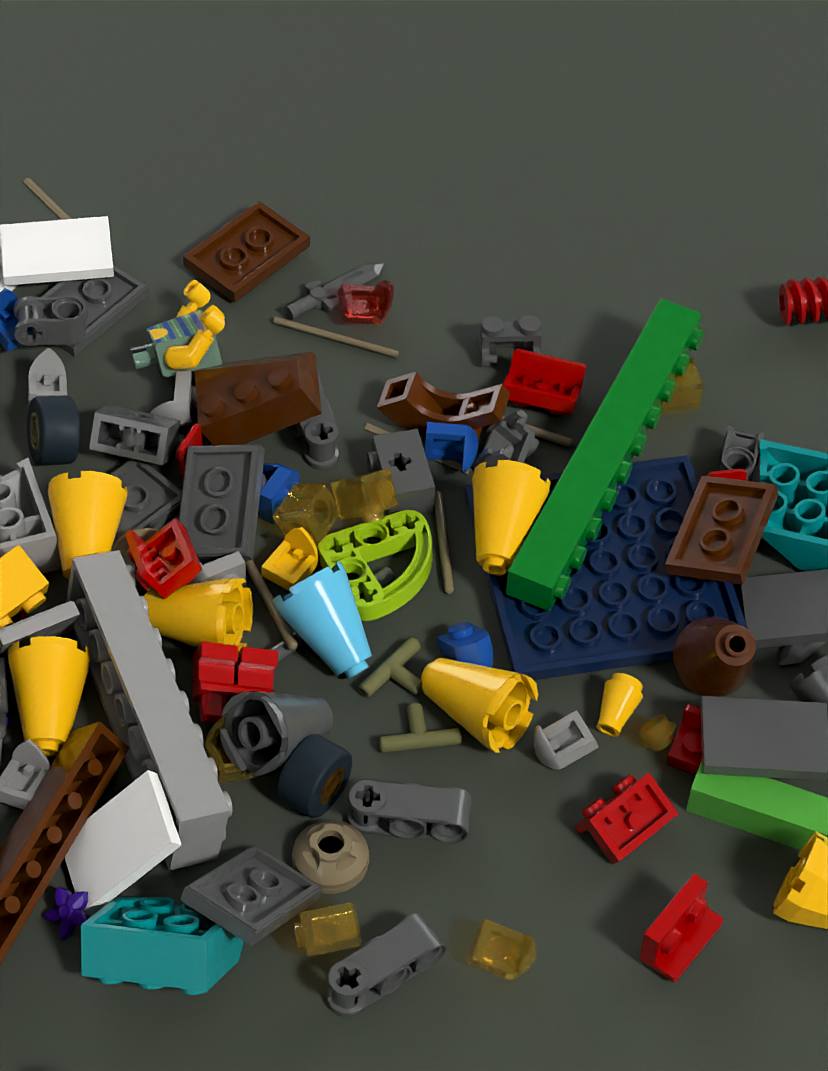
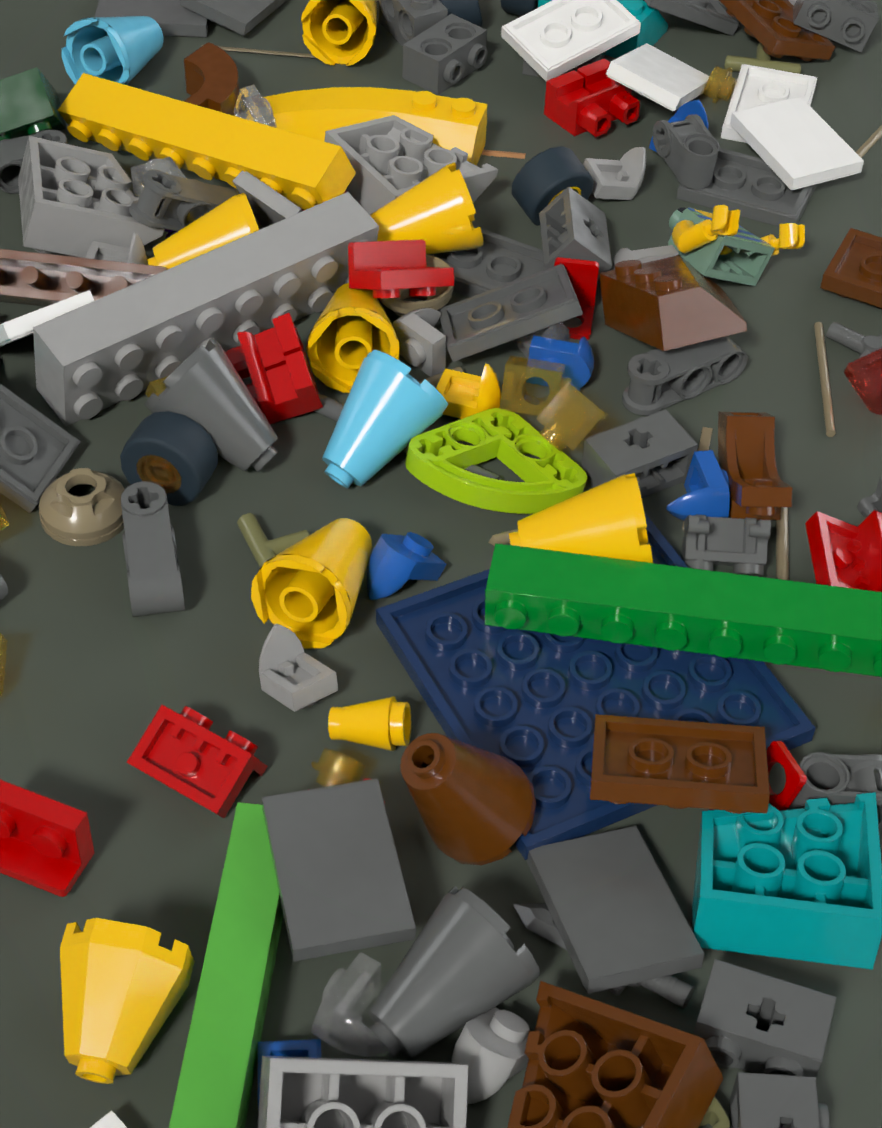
camera: 75 degrees right, 5 degrees down
(394, 669) = (358, 508): olive piece -> none

